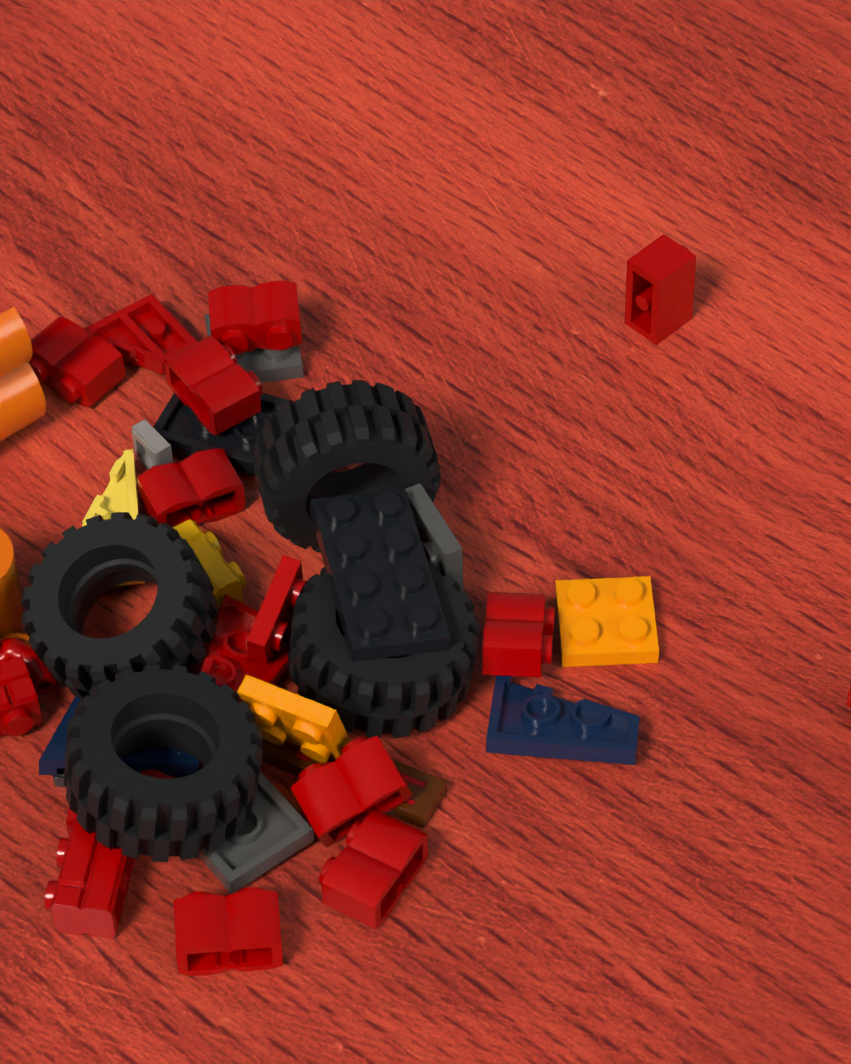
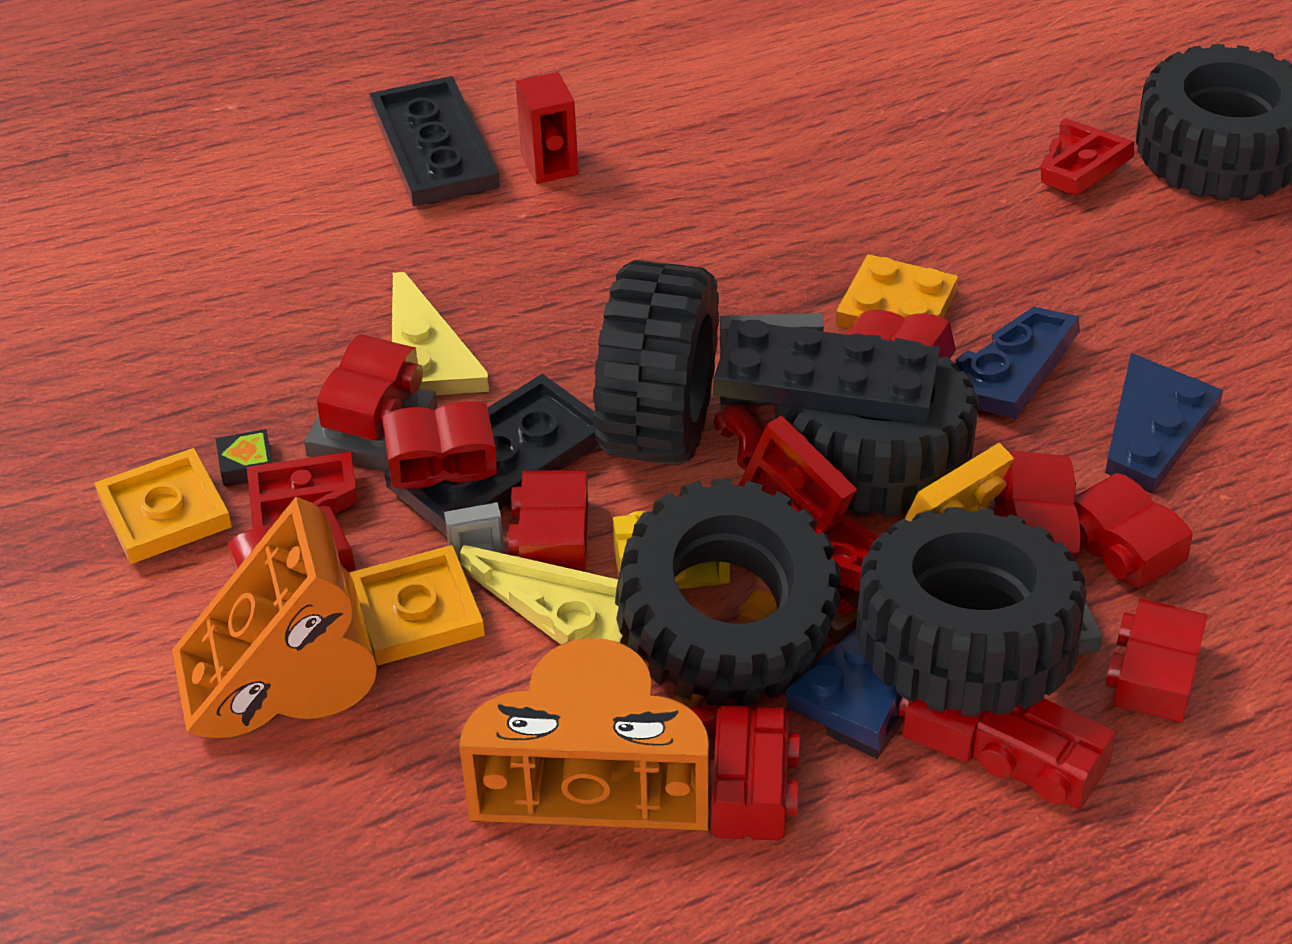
camera: 65 degrees left, 5 degrees down
(65, 449) = (417, 605): none -> light orange plate
(96, 269) = (162, 505): none -> light orange plate
(177, 290) = (242, 451): none -> tile
(357, 340) = (443, 356): none -> light yellow wing
(546, 858) = (1157, 420): none -> dark blue wing
(598, 241) = (434, 141): none -> black plate

